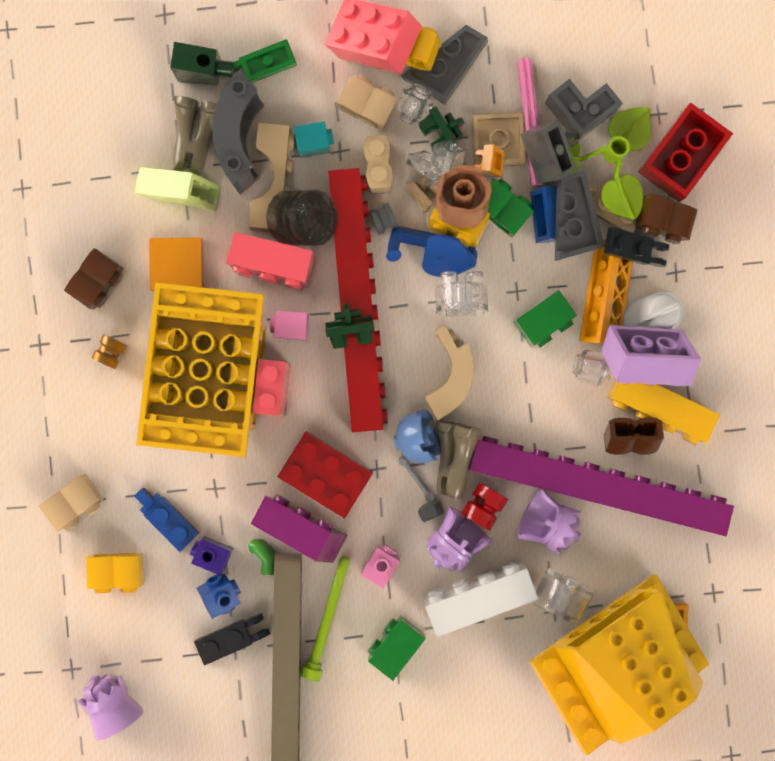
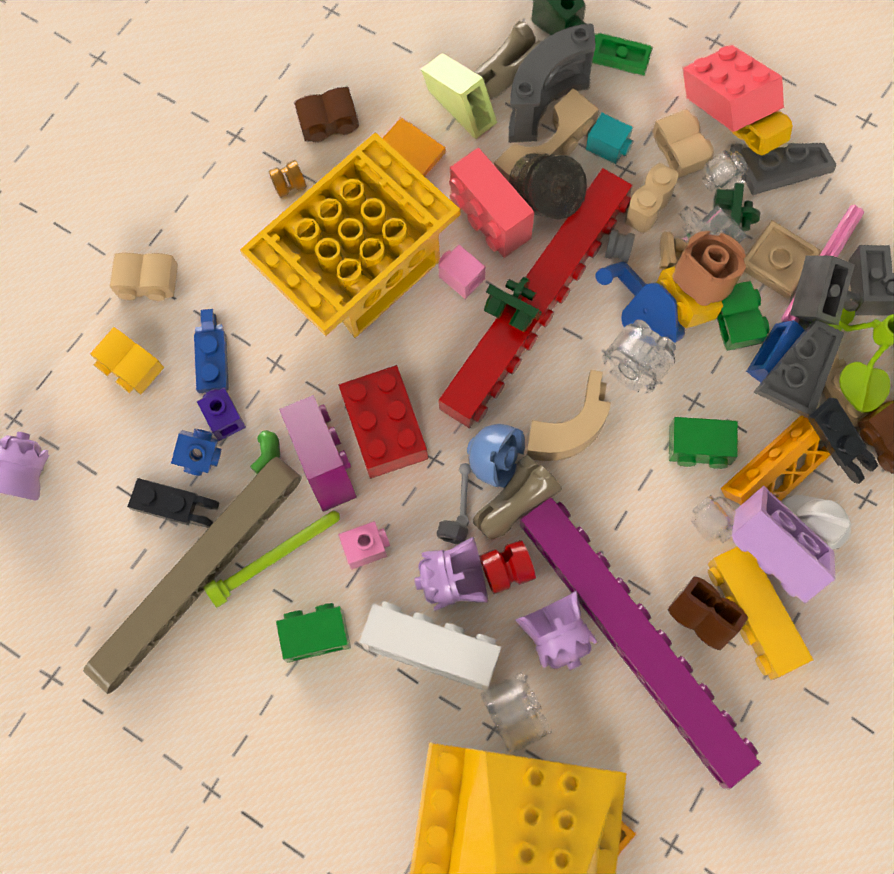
camera: 45 degrees right, 15 degrees down
(271, 387) = (399, 304): coral brick -> none
(491, 160) = (761, 264): light orange tile -> none

